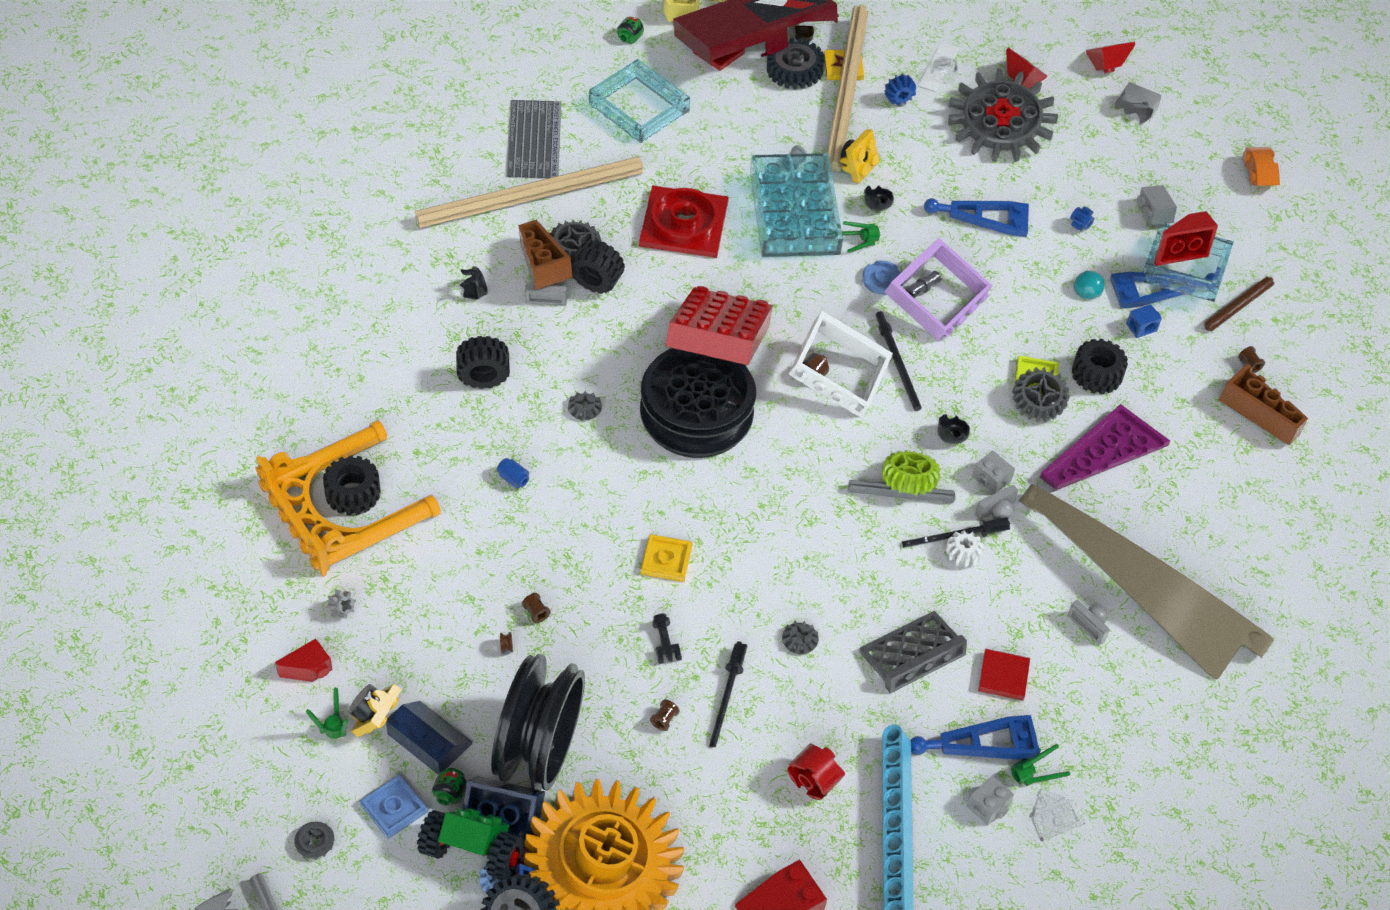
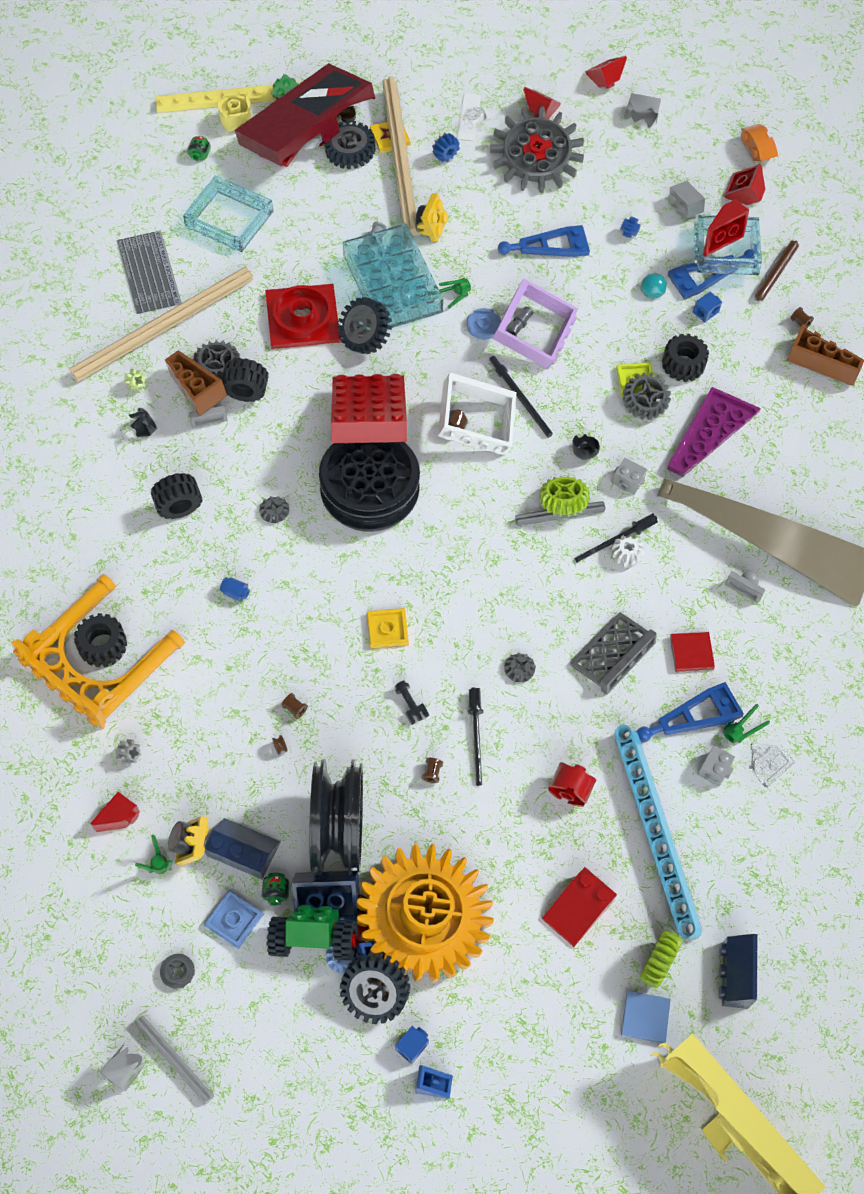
camera: 15 degrees left, 10 degrees up
(486, 239) = (129, 379): none -> yellowish green gear
(757, 234) = (356, 335): none -> wheel
(878, 198) = (458, 252): black hair -> none
(998, 504) = (642, 503): light grey tile -> none
(1233, 208) = (746, 185): none -> red slope

